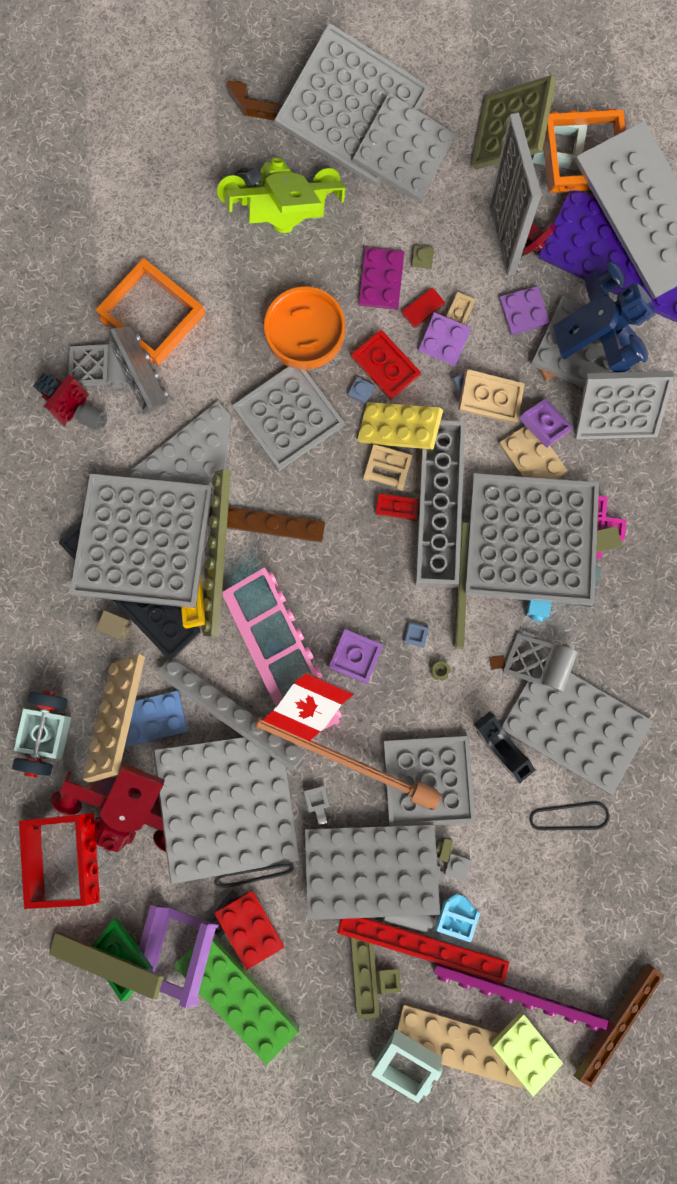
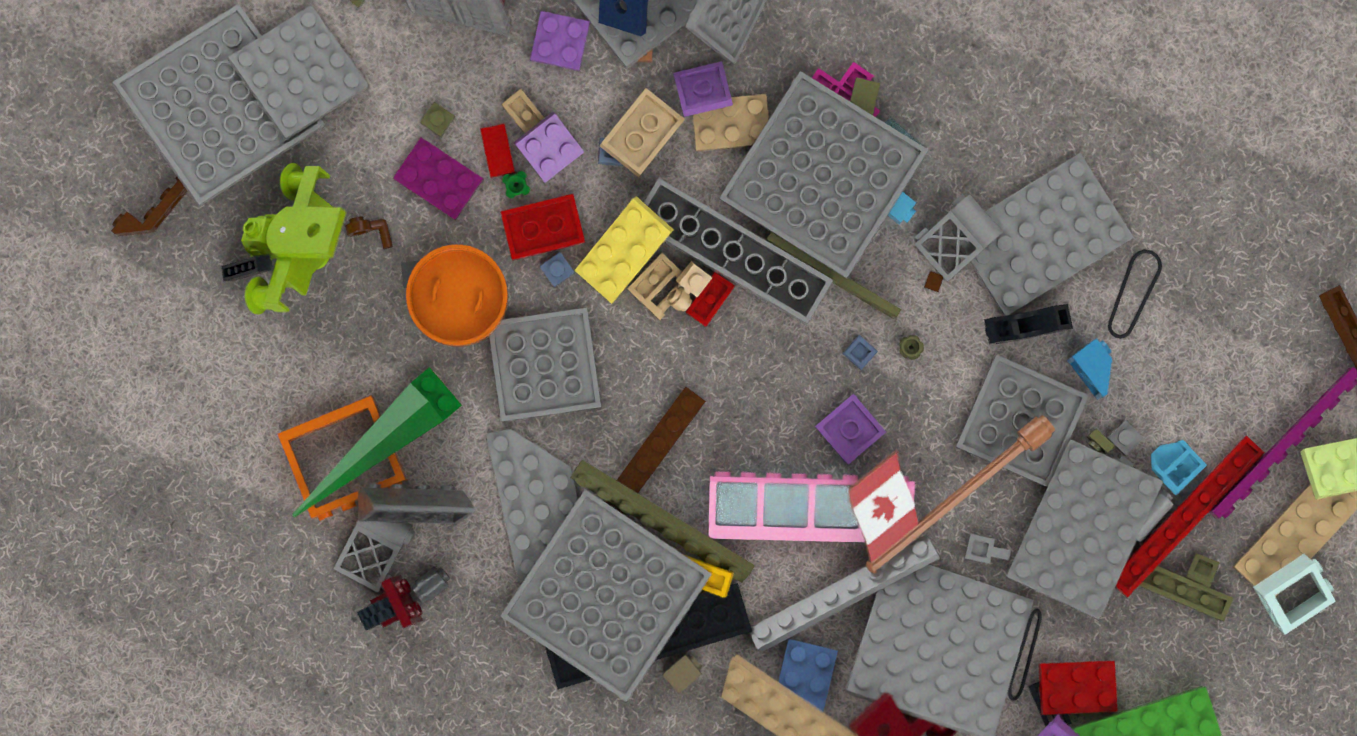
camera: 60 degrees left, 5 degrees up
(203, 340) = (412, 414): none -> green plate
(318, 241) = (359, 226): none -> reddish brown plate
(400, 331) = (520, 178): none -> green plate
(403, 486) = (692, 281): none -> tan plate
(499, 814) = (1093, 367): none -> dark azure slope

